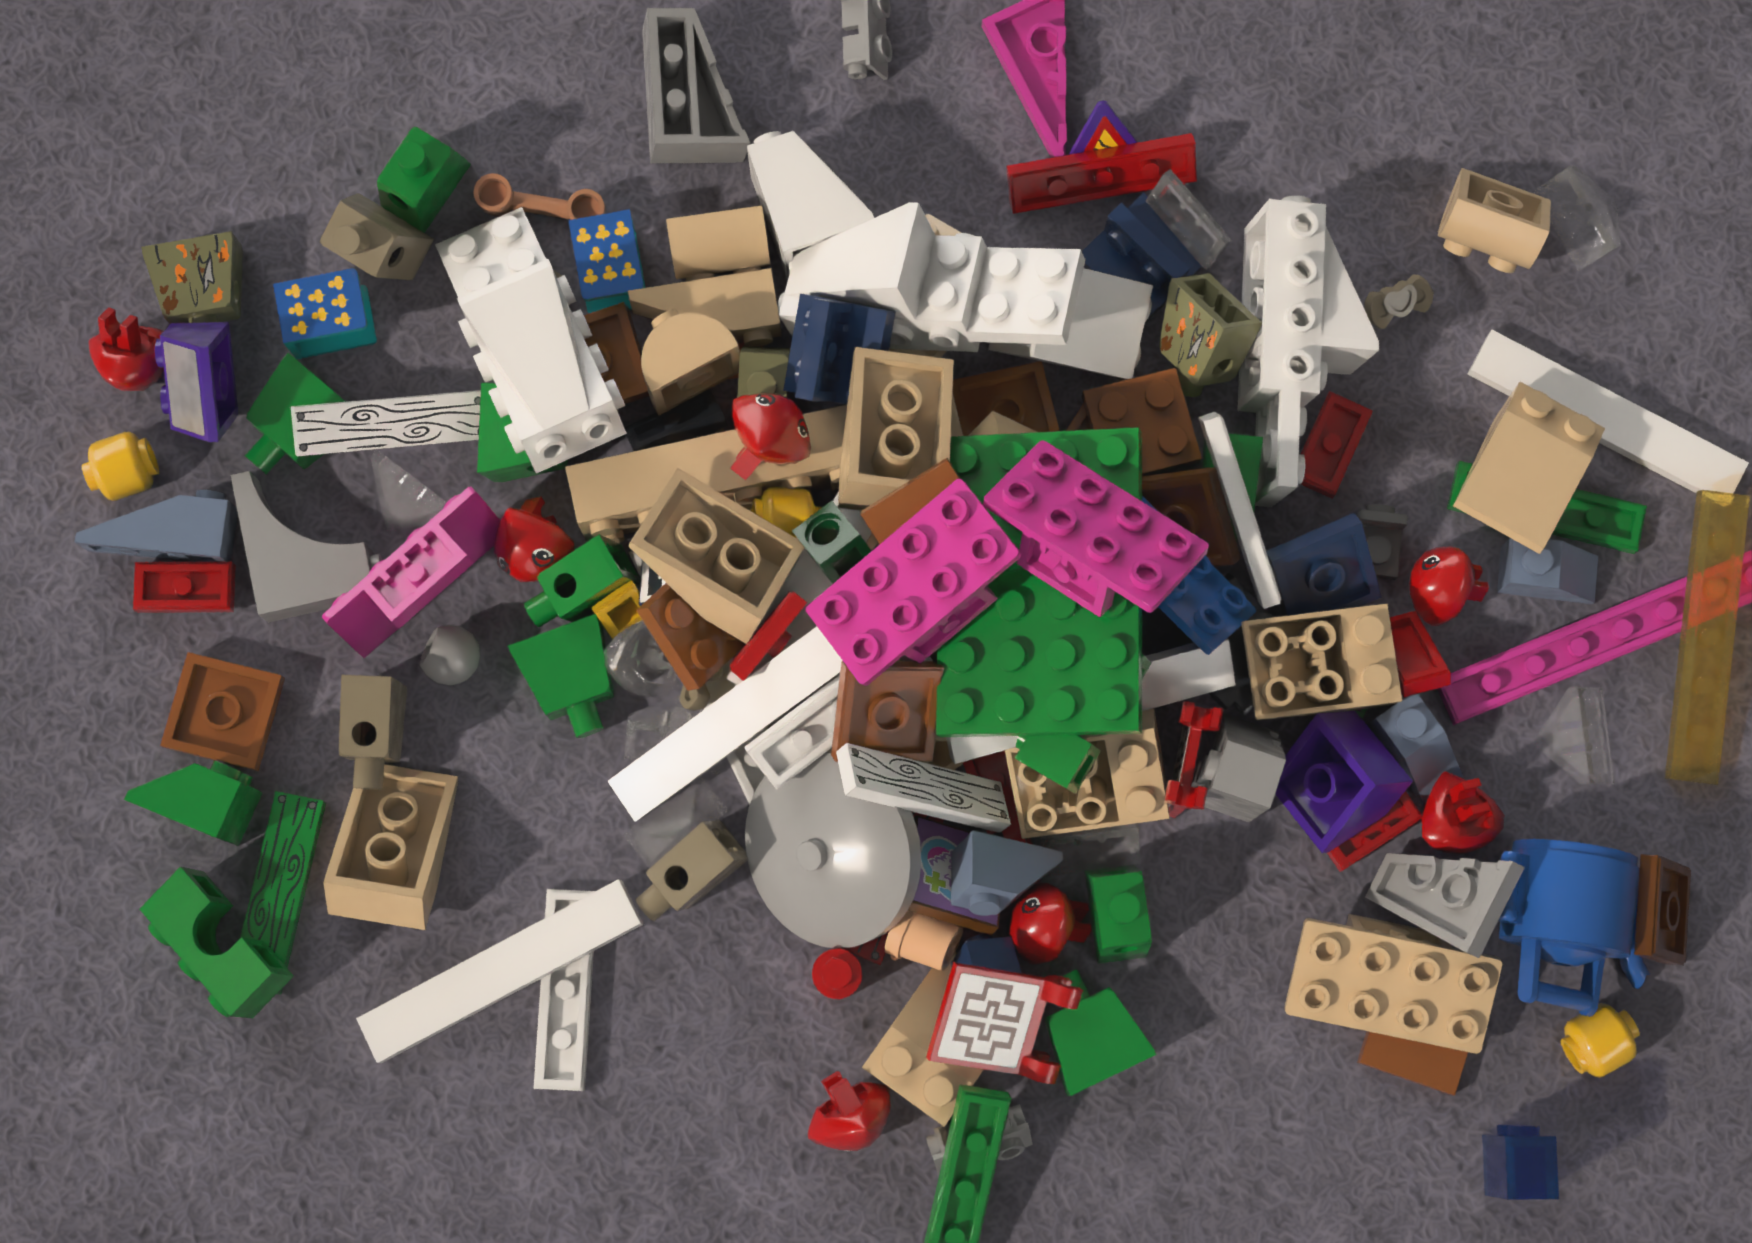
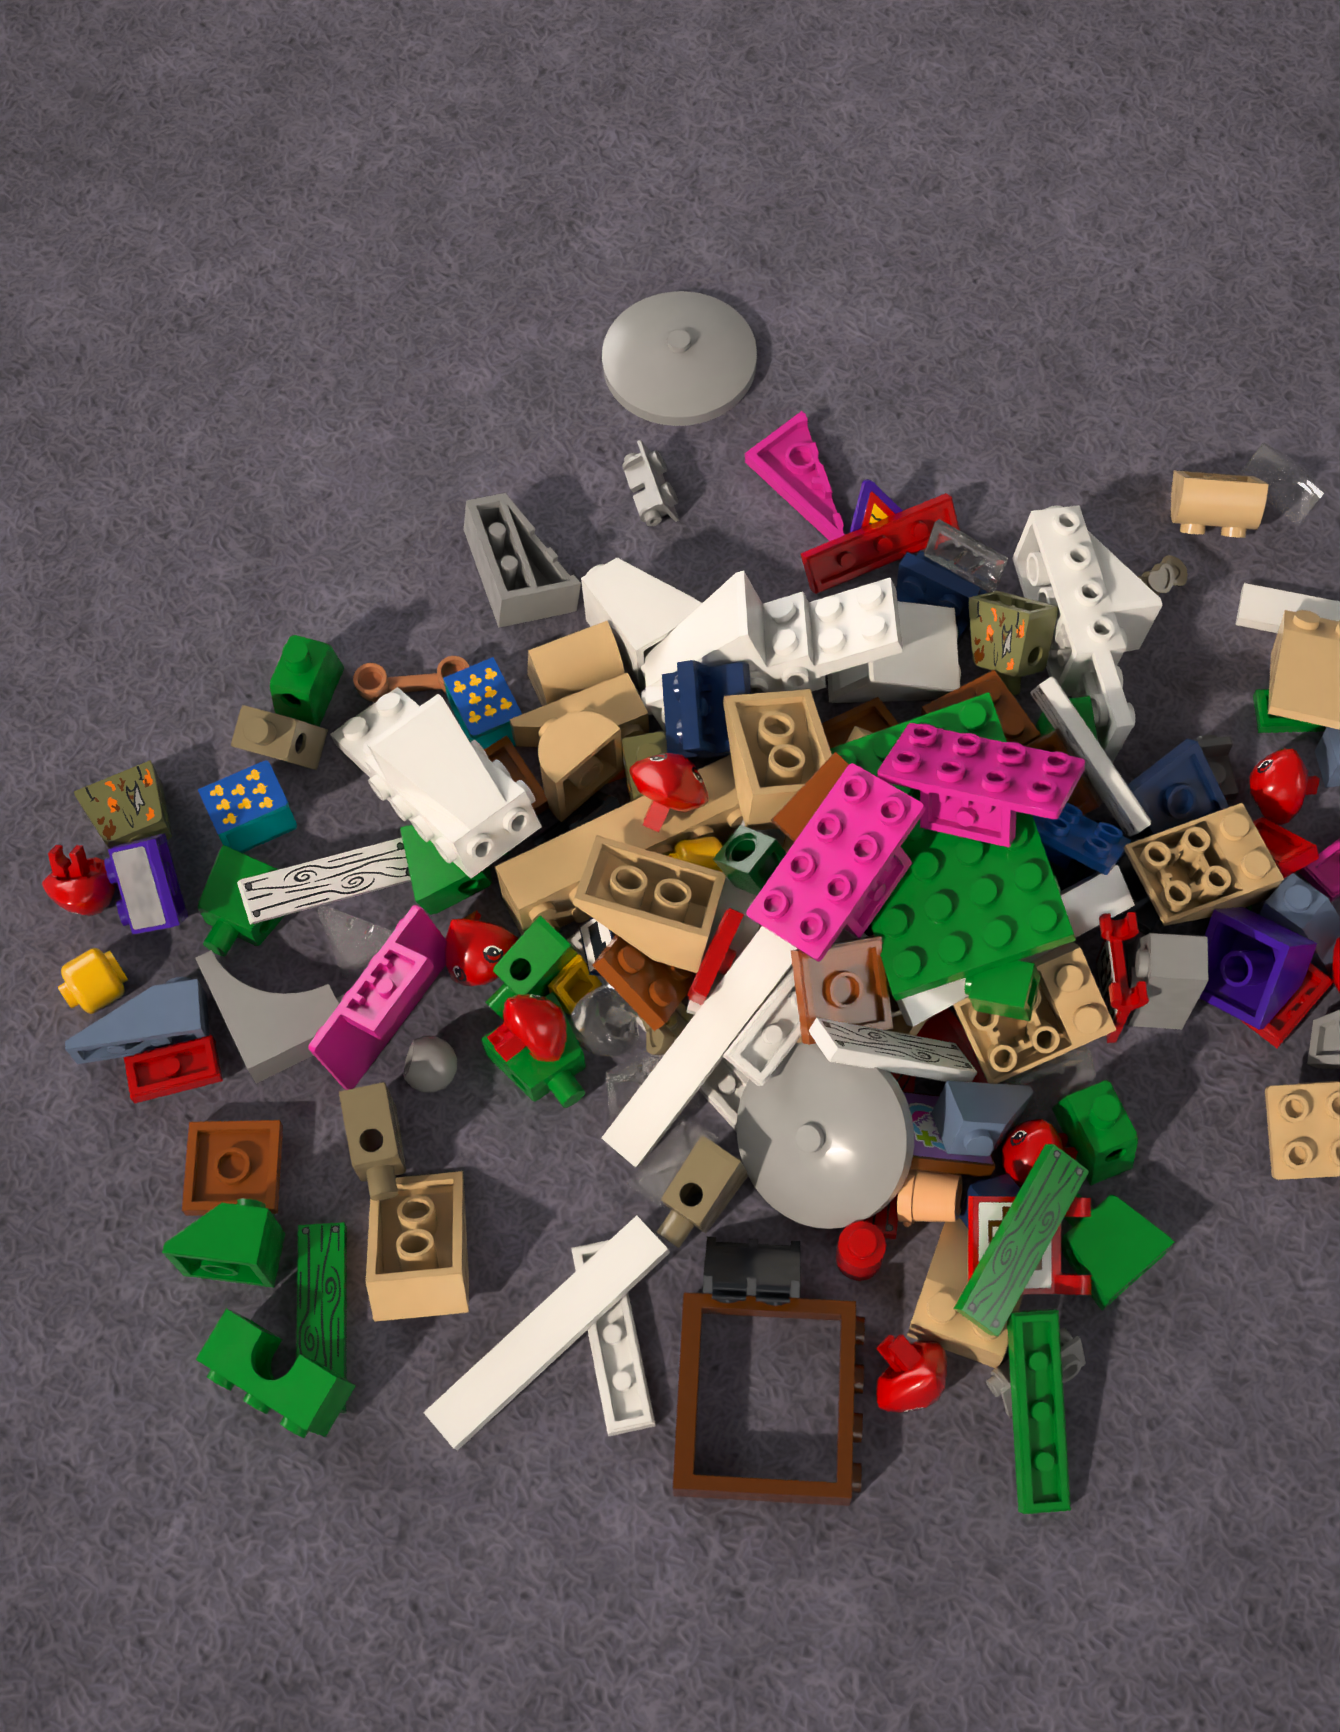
camera: 10 degrees left, 15 degrees down
(561, 653) = (531, 1023): none -> red piece
(622, 1075) = (849, 1423): none -> reddish brown window
(719, 967) = (752, 1269): none -> black plate
(995, 1019) = (1021, 1240): none -> green tile
(1333, 443) = (1146, 690): red plate -> none

